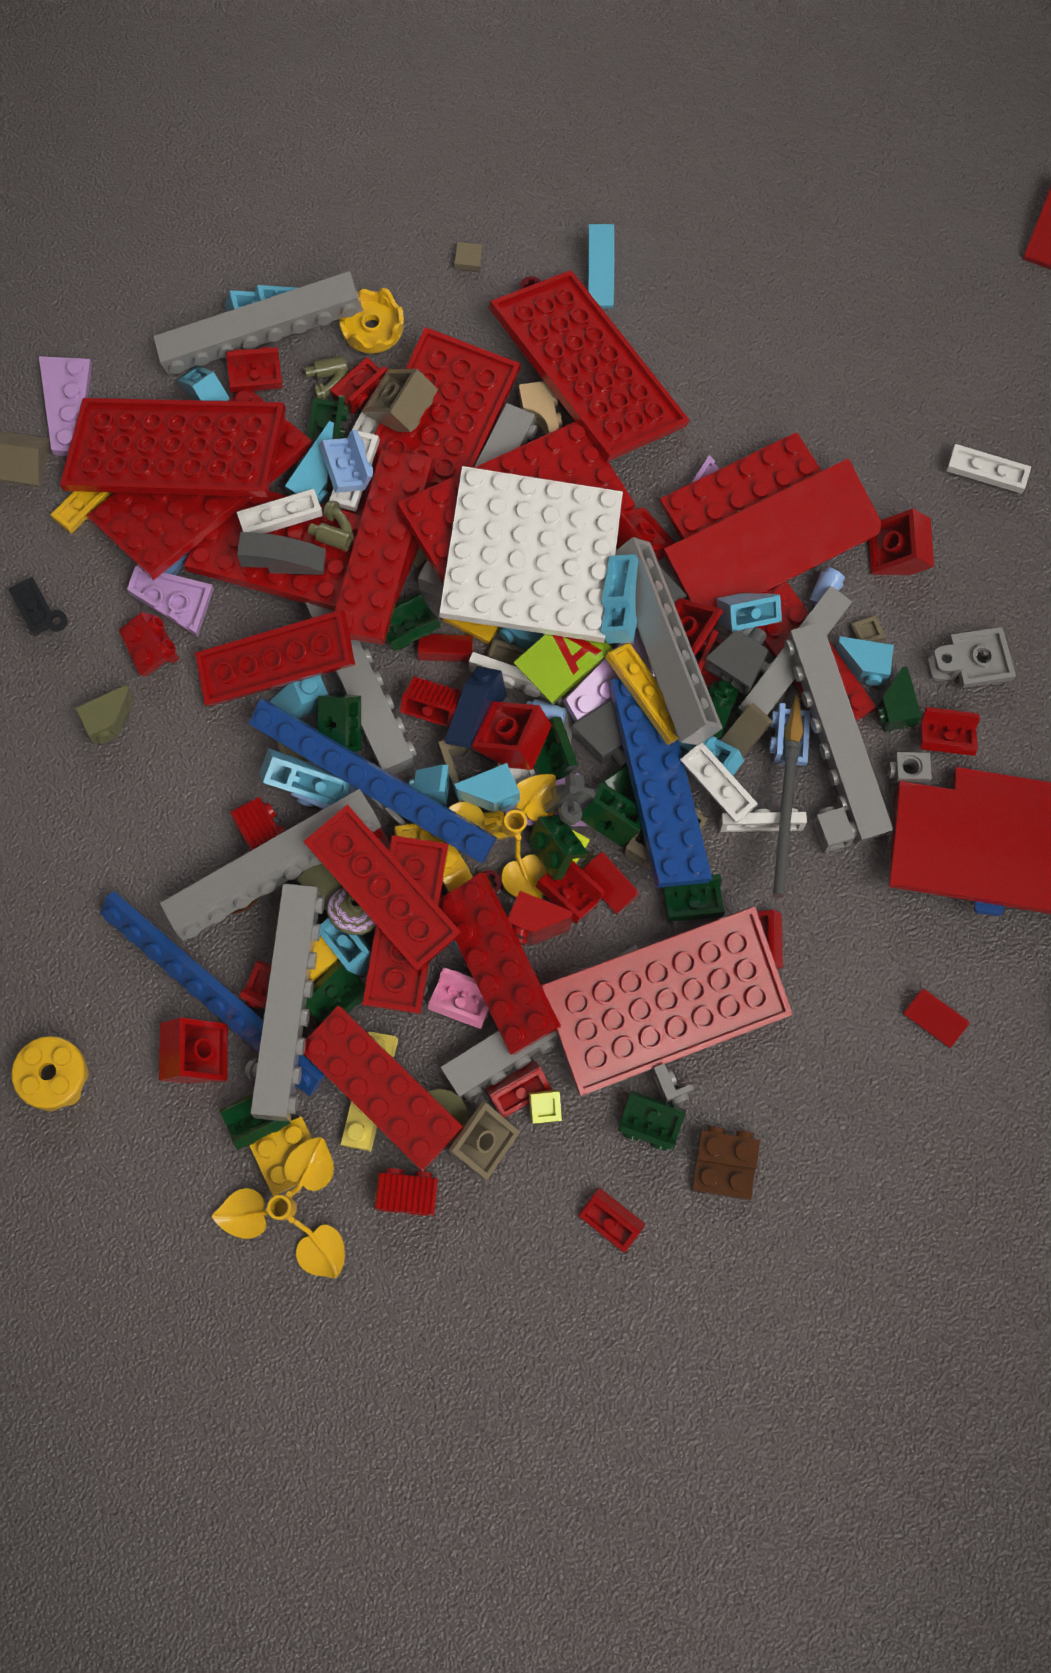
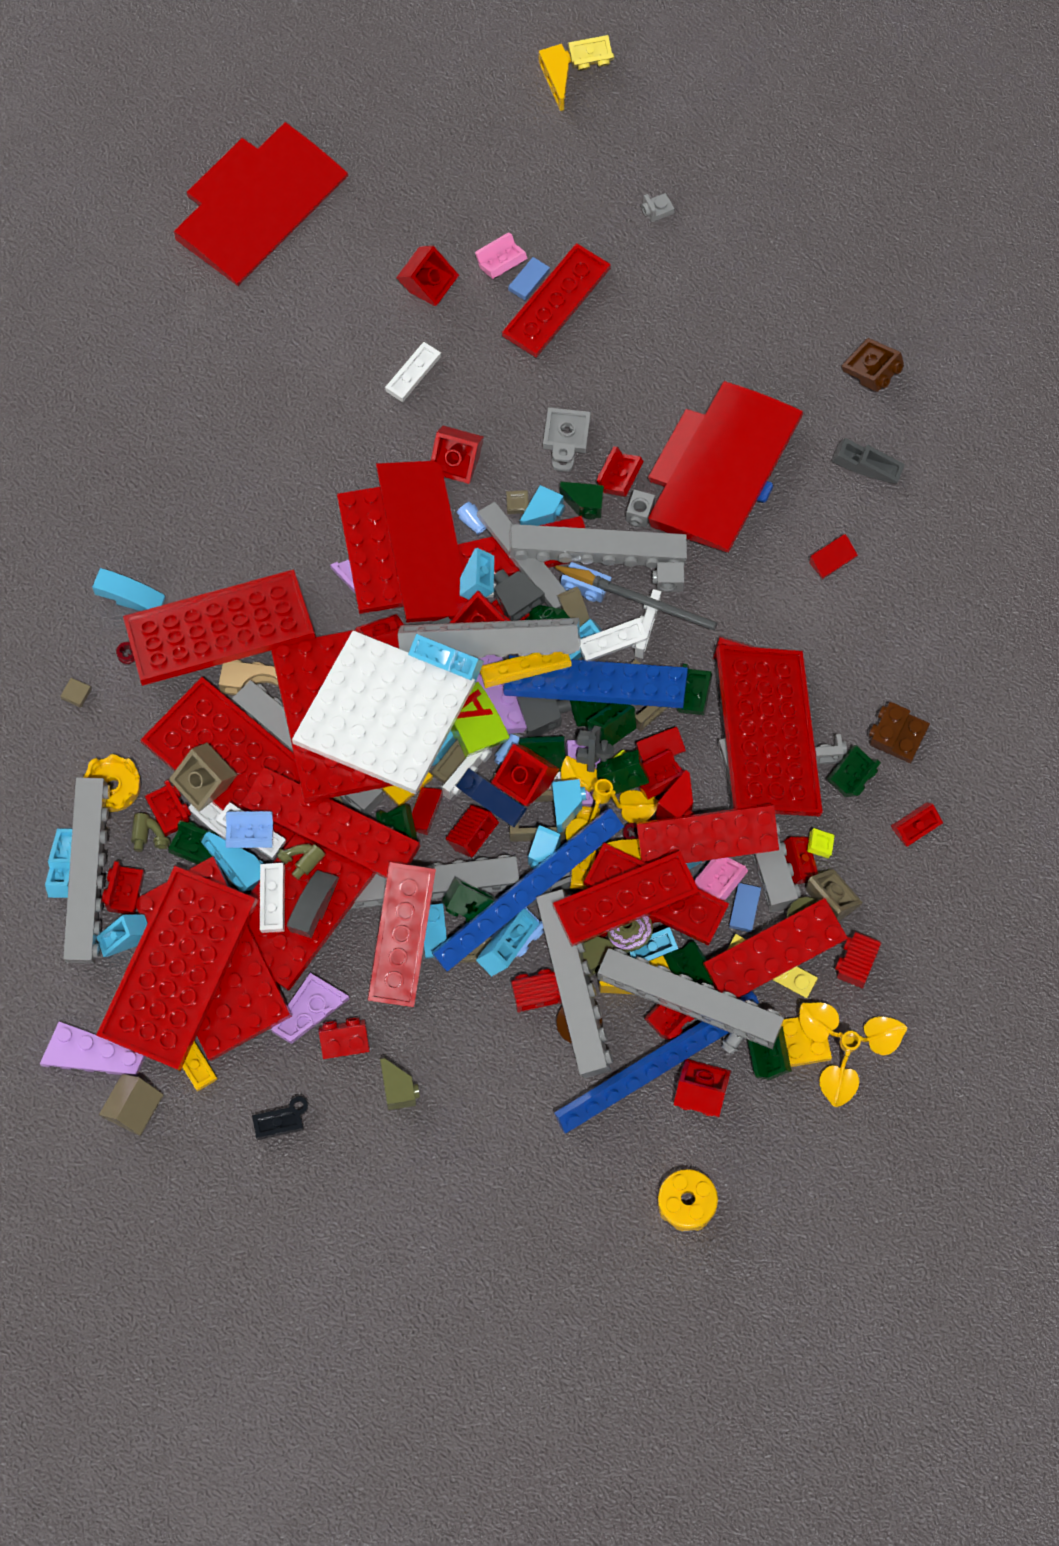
camera: 70 degrees left, 5 degrees down
(436, 1039) = (745, 907): none -> medium blue tile

